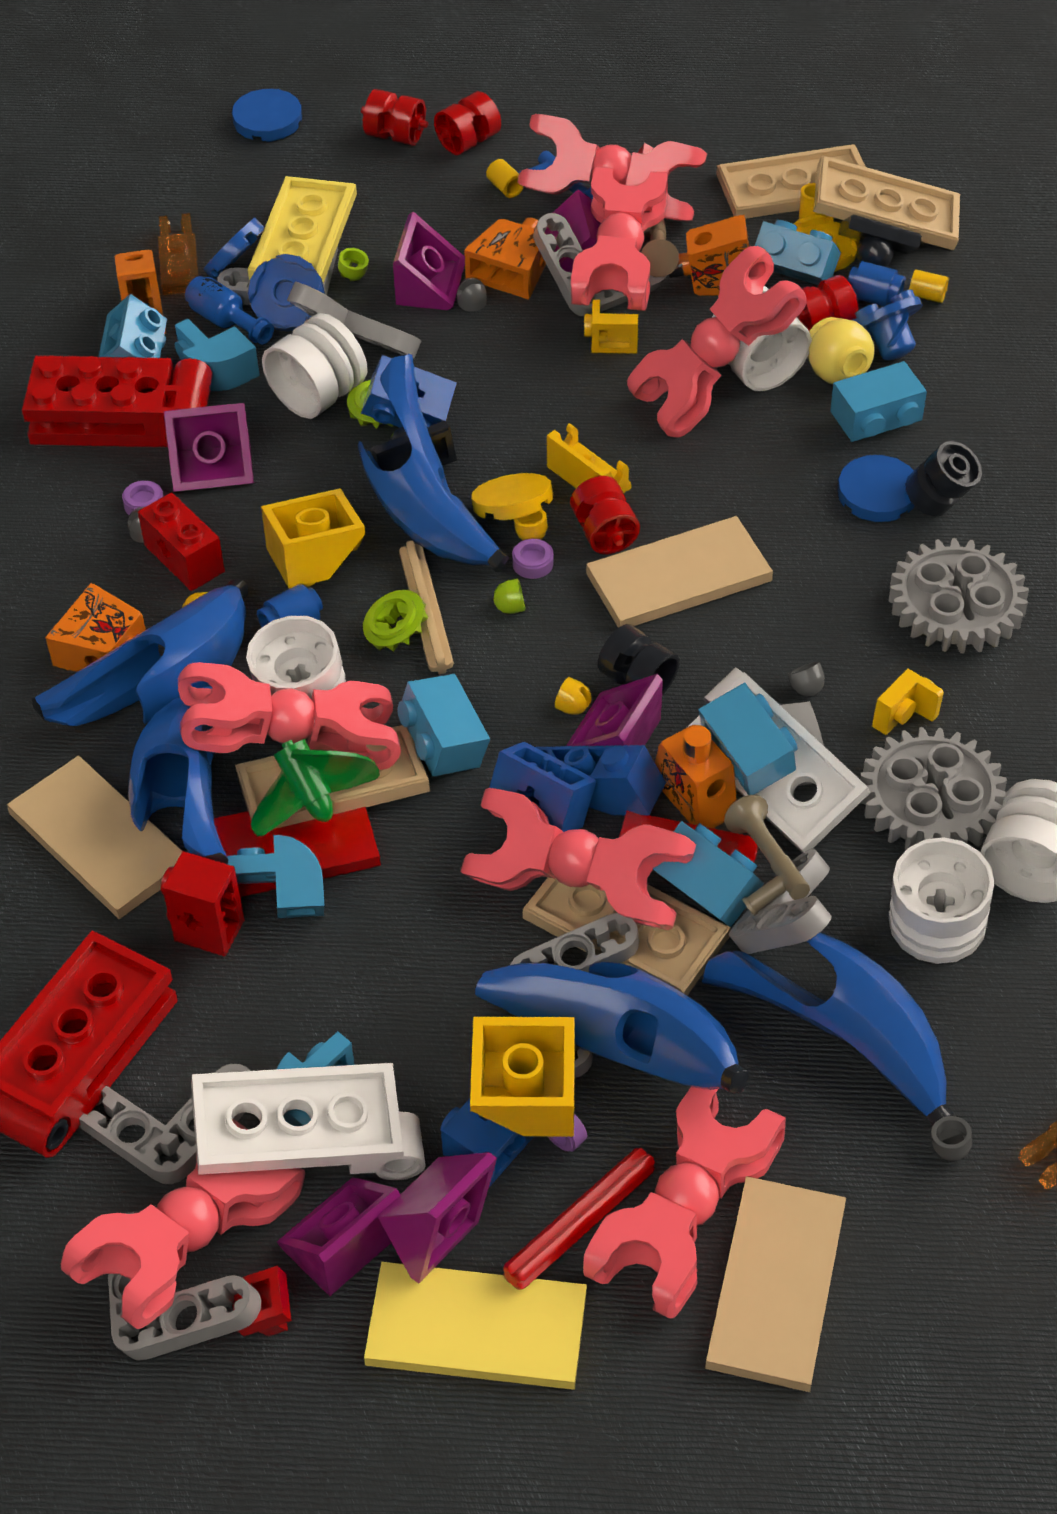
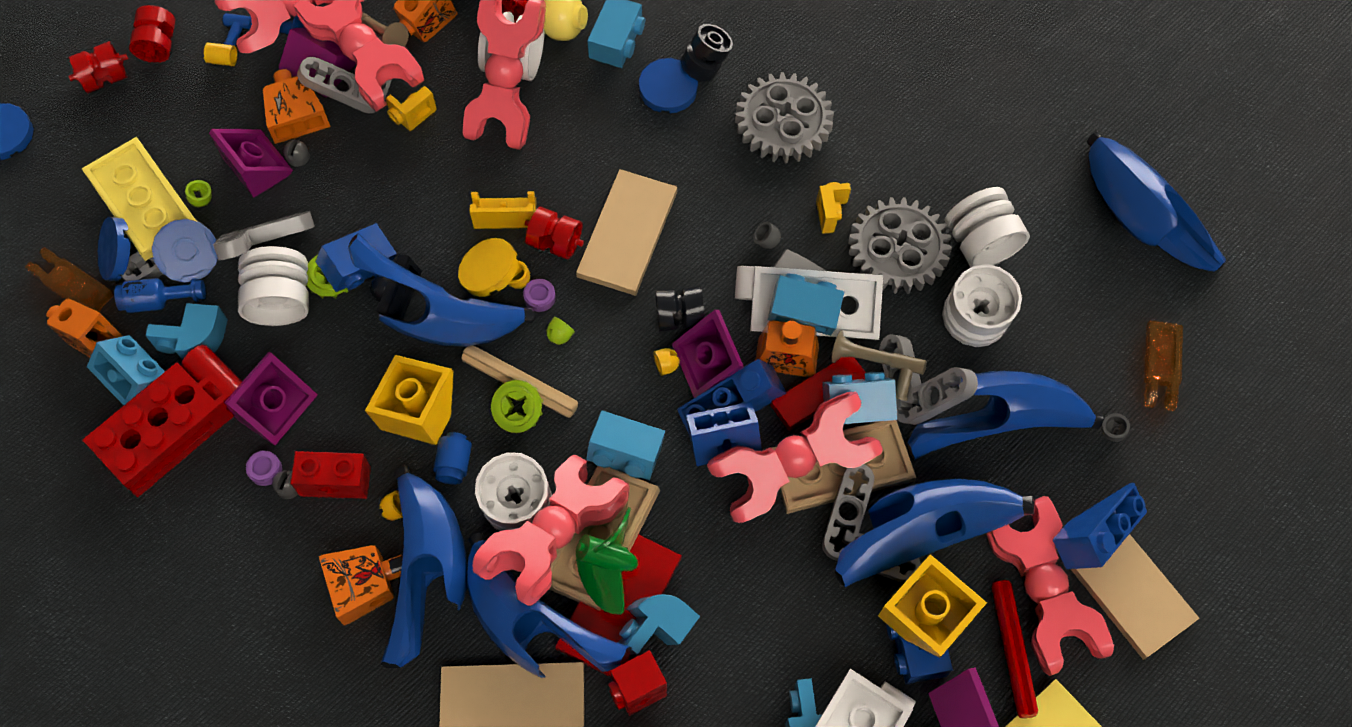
camera: 50 degrees left, 15 degrees up
(806, 1192) = (1100, 530): none -> blue slope

